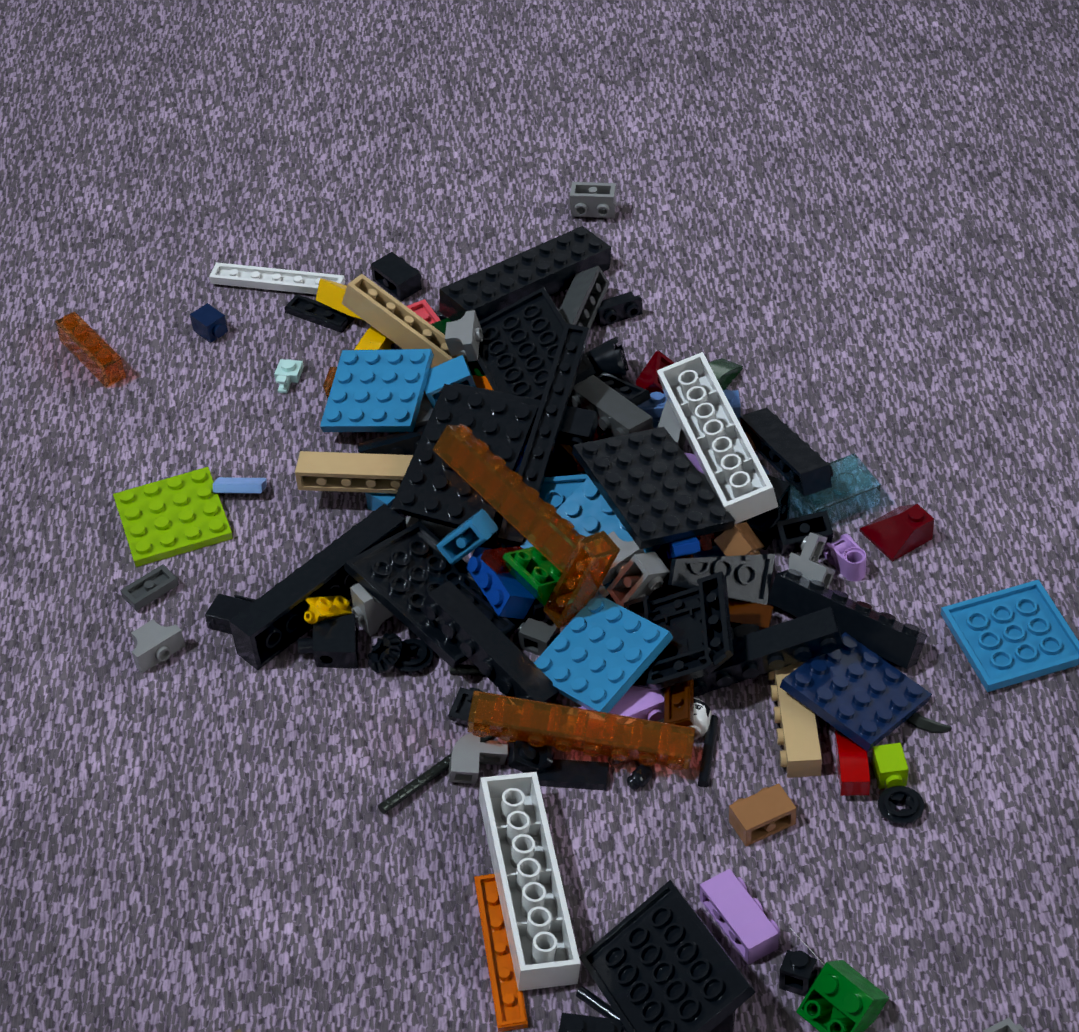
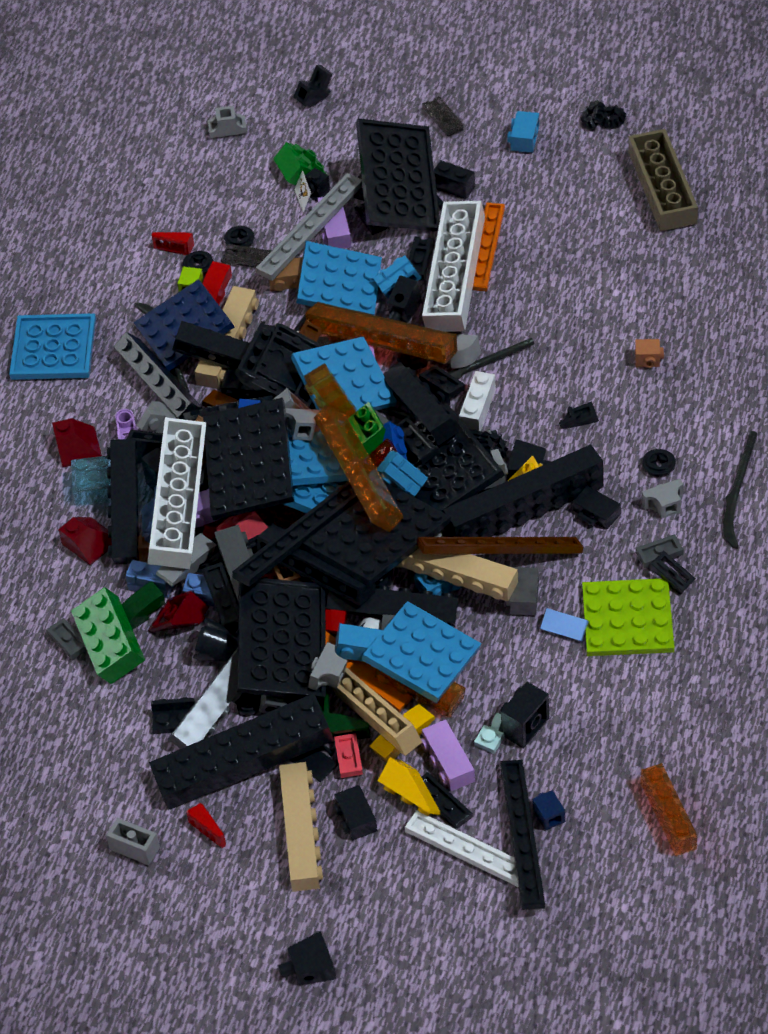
camera: 160 degrees left, 5 degrees up
(73, 678) = (731, 498): none -> pearl dark grey piece
(129, 564) = (662, 569): none -> black tile
(180, 684) = (666, 459): none -> black gear
(216, 829) = (648, 353): none -> nougat brick
(230, 299) = (522, 835): none -> black tile
(252, 378) = (524, 714): none -> black brick
(290, 729) = (579, 416): none -> black slope
(293, 504) = (525, 595): none -> flat silver brick
(321, 338) = (447, 755): none -> lavender brick
(326, 509) = (499, 545): none -> reddish brown tile
(390, 170) = (309, 961): none -> black torso
(423, 698) = (478, 400): none -> white brick
(439, 245) = (299, 826): none -> tan brick
(538, 232) = (202, 821): none -> red slope
(576, 793) = (404, 299): none -> black torso
(588, 896) = (421, 254): none -> black plate
(601, 837) = (388, 277): none -> dark azure brick
(683, 818) = (338, 278): none -> dark azure plate
(722, 338) = (107, 635): none -> green brick
(759, 867) = (309, 226): none -> light grey plate
(768, 341) = (67, 638): none -> dark grey plate
(820, 429) = (85, 538): none -> dark red slope
(833, 831) = (244, 256): none -> clear smoke plate
(871, 852) = (233, 233): none -> black gear
(953, 820) = (179, 243): none -> red slope

